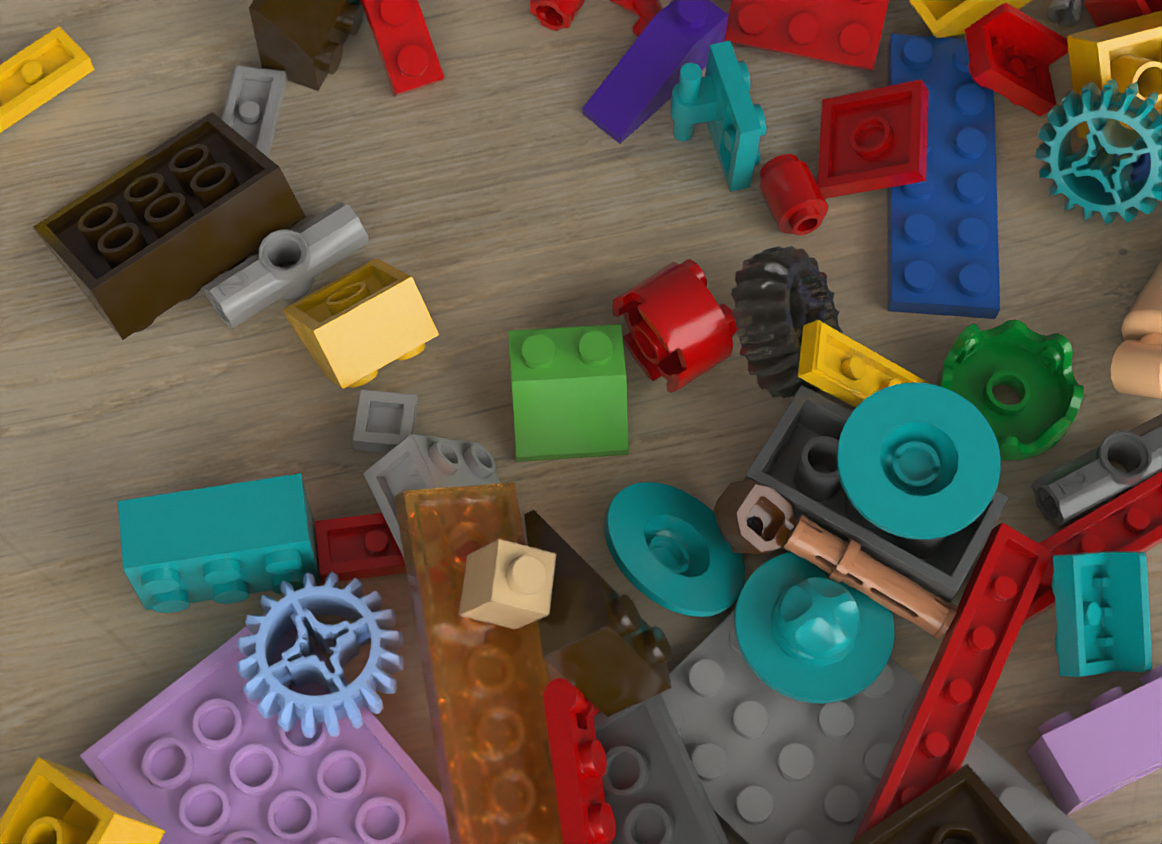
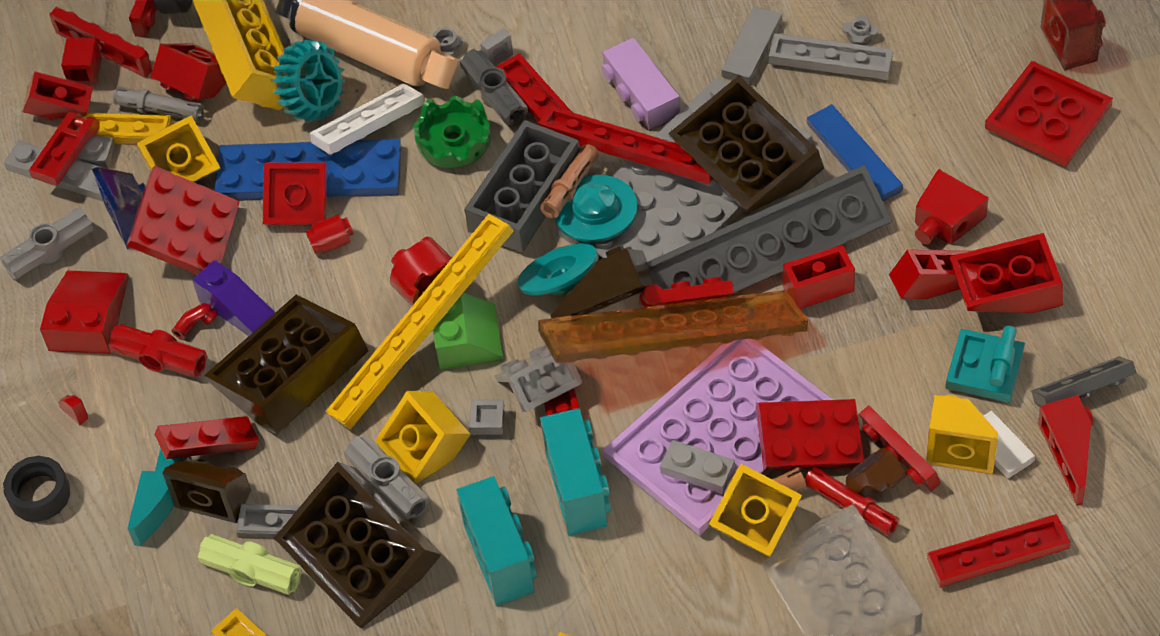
camera: 85 degrees left, 10 degrees down
(107, 410) = (497, 540): none -> teal brick
(168, 79) = (249, 564): none -> yellowish green piece
(201, 761) = (697, 466): none -> light grey plate
(301, 667) = (631, 425): light blue gear -> none
(507, 584) = (602, 306): tan brick -> none
(528, 127) = (288, 362): none -> dark brown slope
(576, 315) = (419, 321): none -> yellow tile
(727, 109) = (284, 259): teal plate -> none
(753, 517) = (540, 234): reddish brown rock -> none
(772, 303) = (423, 220): clear smoke gear -> none
(846, 366) = (456, 185): yellow tile -> none
(918, 460) = (515, 145): teal hat -> none
(1013, 57) = (240, 132): red bracket -> none
(1036, 251) = (367, 118): none -> white plate
(1102, 612) = (580, 87): teal bracket -> none

